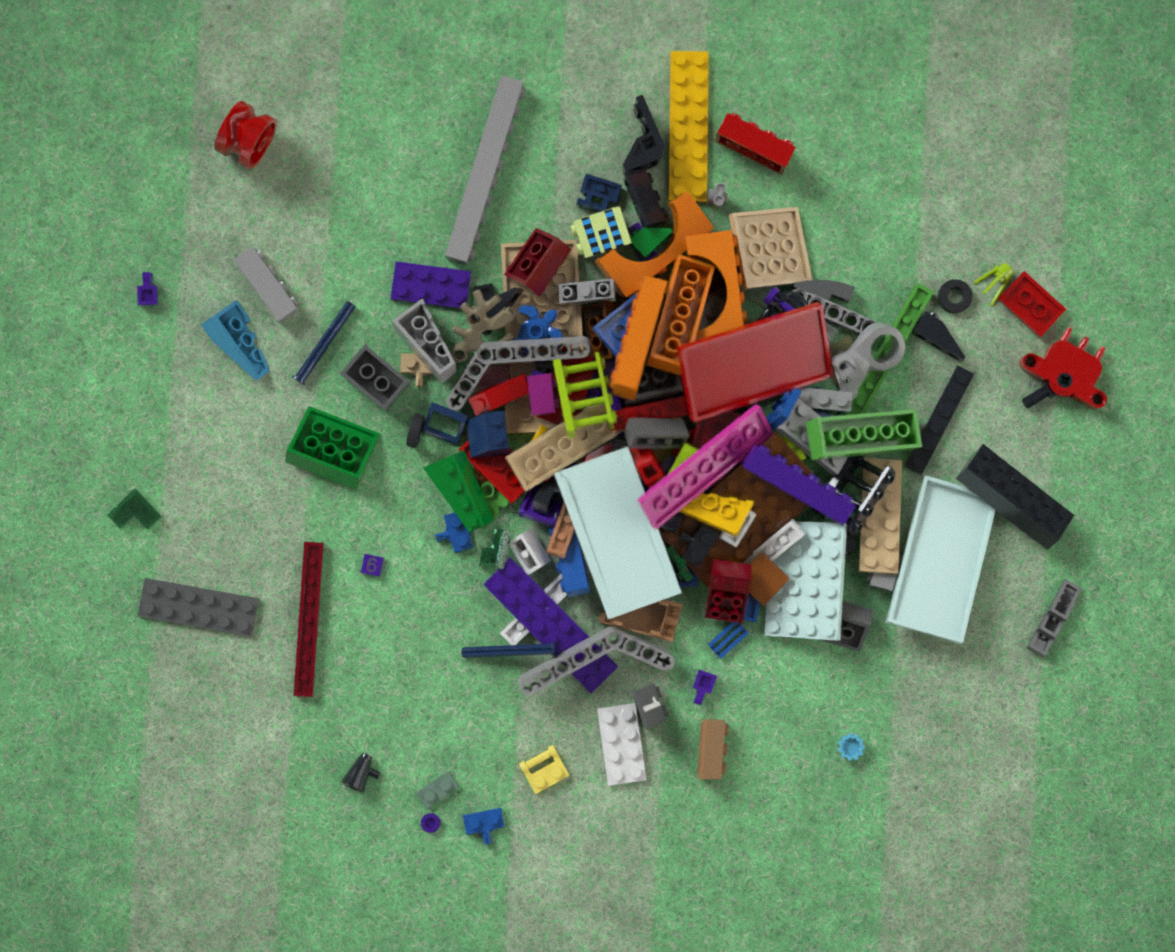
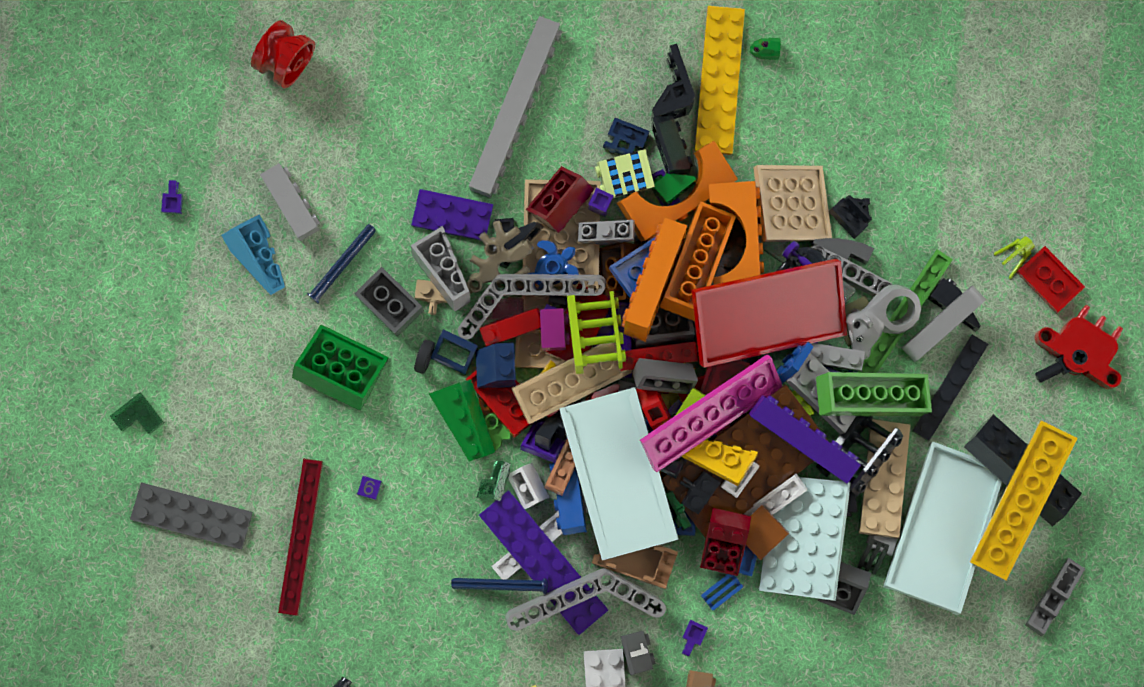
camera: 10 degrees right, 5 degrees down
(455, 533) = (456, 462): blue plate -> none
(578, 262) = (600, 202): none -> dark purple panel
(718, 196) = (743, 149): light grey plate -> none
(733, 91) = (766, 48): none -> green rock
(755, 143) = (784, 100): red brick -> none
(830, 254) = (852, 214): none -> black slope
(870, 602) = (867, 566): none -> pearl dark grey tile
(928, 357) = (943, 323): none -> light grey beam
(966, 293) = (976, 254): black tyre -> none
(1017, 527) = (1023, 500): none -> yellow plate

